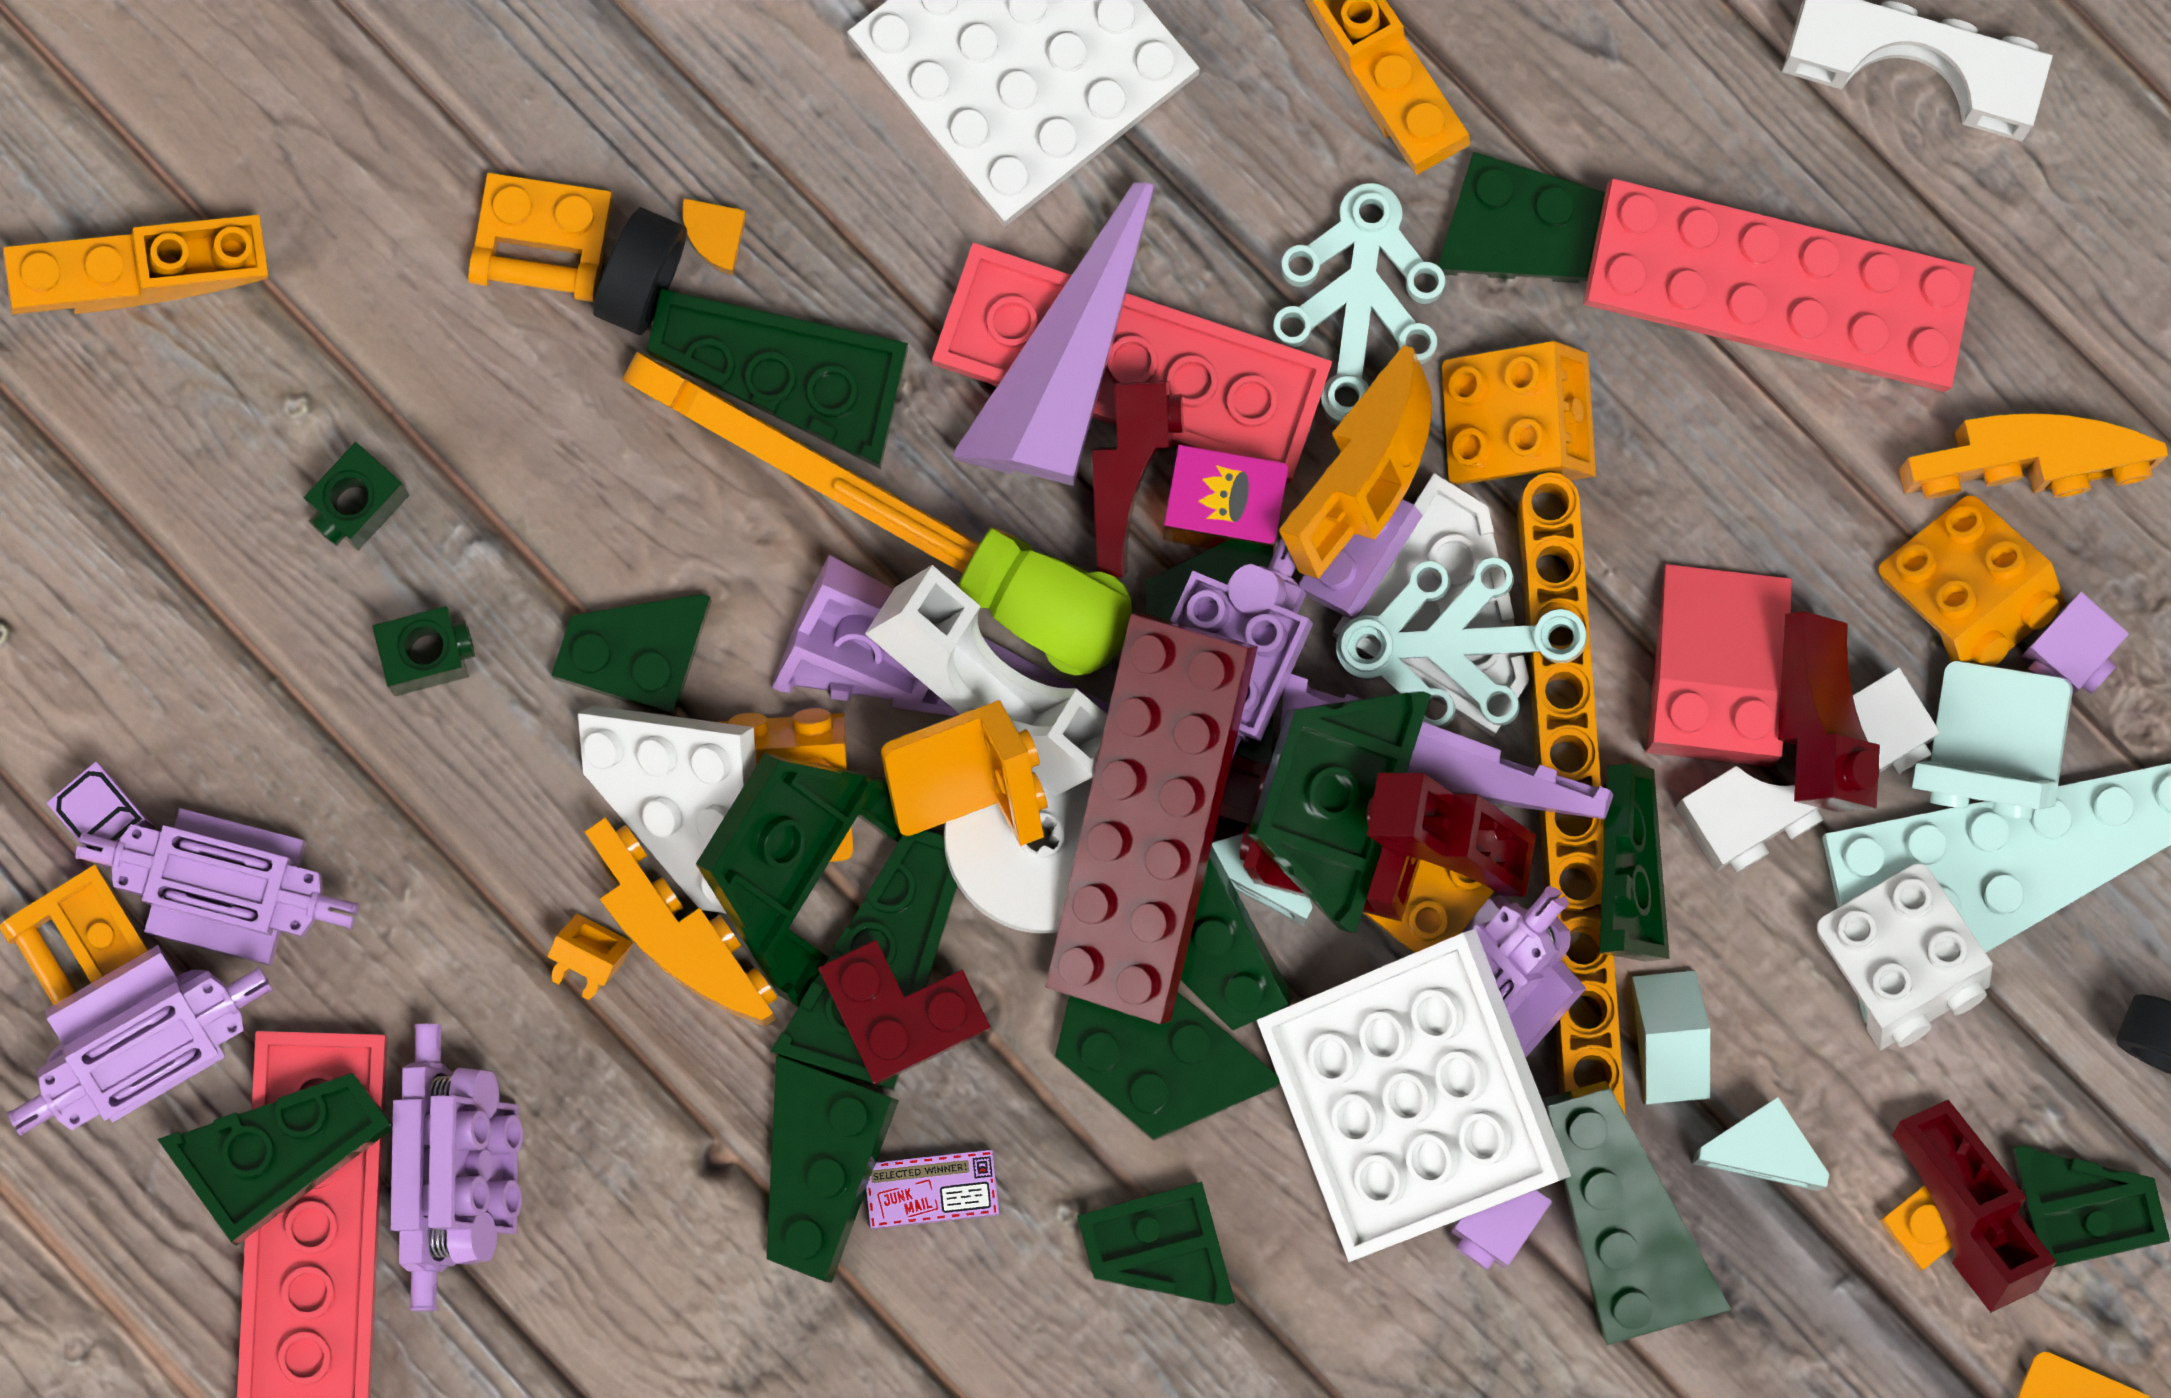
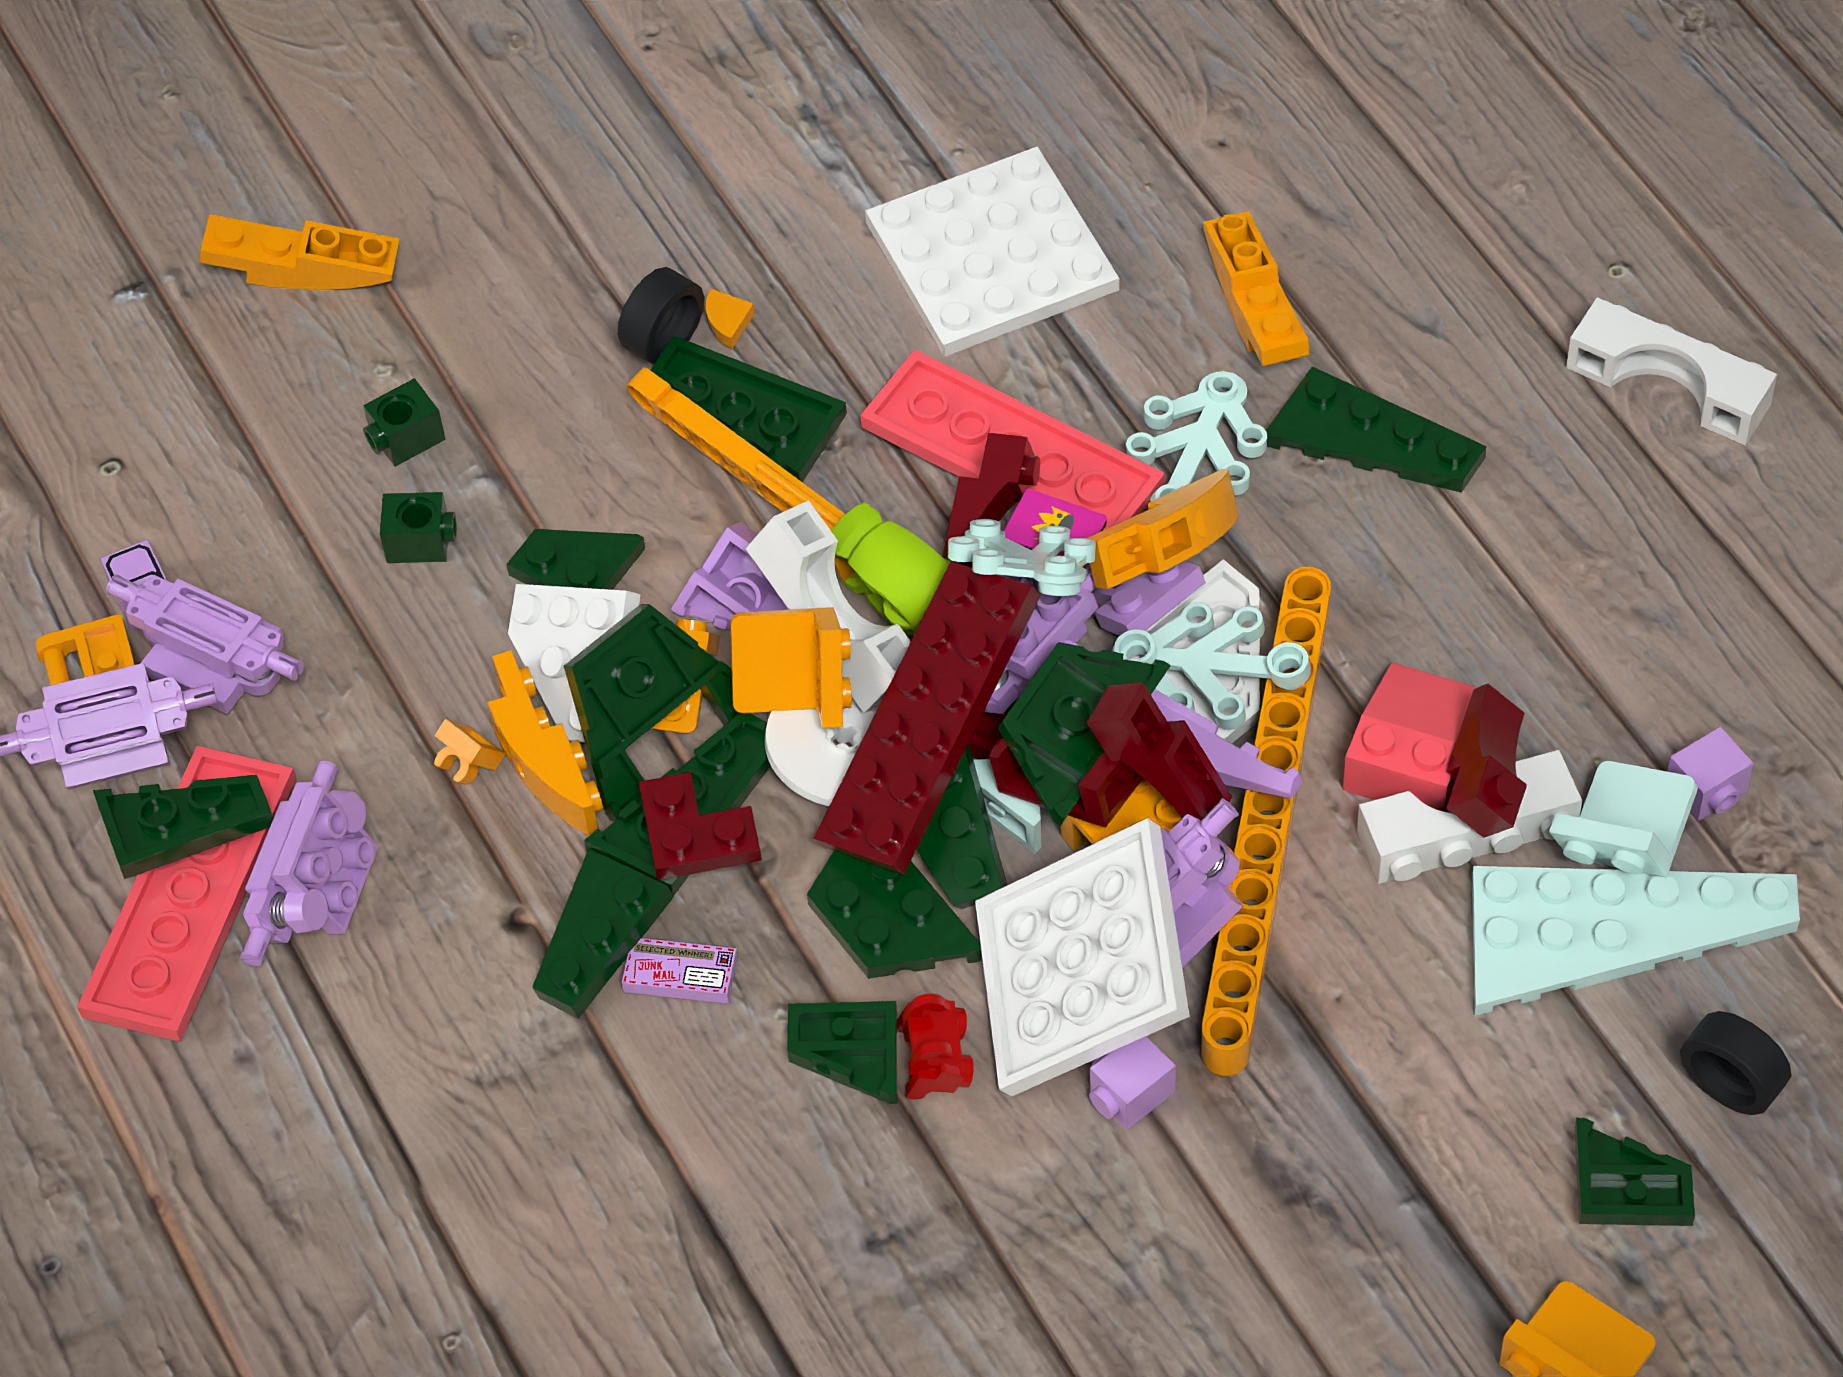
camera: 20 degrees right, 25 degrees down
(544, 218) = (593, 282): light orange plate -> none
(1049, 393) = (942, 446): lavender wedge -> none
(1263, 1225) = (934, 1034): none -> red piece
(1272, 622) = (995, 554): none -> light aqua plant
(1519, 413) = (1304, 528): light orange bracket -> none
(1629, 1233) = (1236, 1109): wing -> none
(1632, 869) = (1306, 852): dark green wing -> none
(1672, 1037) = (1309, 990): light aqua slope -> none
(1766, 1148) = (1362, 1076): light aqua slope -> none
(1779, 285) = (1528, 489): coral plate -> none
(1906, 955) = (1519, 962): white bracket -> none
(1918, 1229) = (1489, 1169): light orange plate -> none
(1975, 582) = (1639, 715): light orange bracket -> none
(1977, 1204) = (1534, 1156): dark red slope -> none
(2055, 449) = (1723, 636): light orange slope -> none

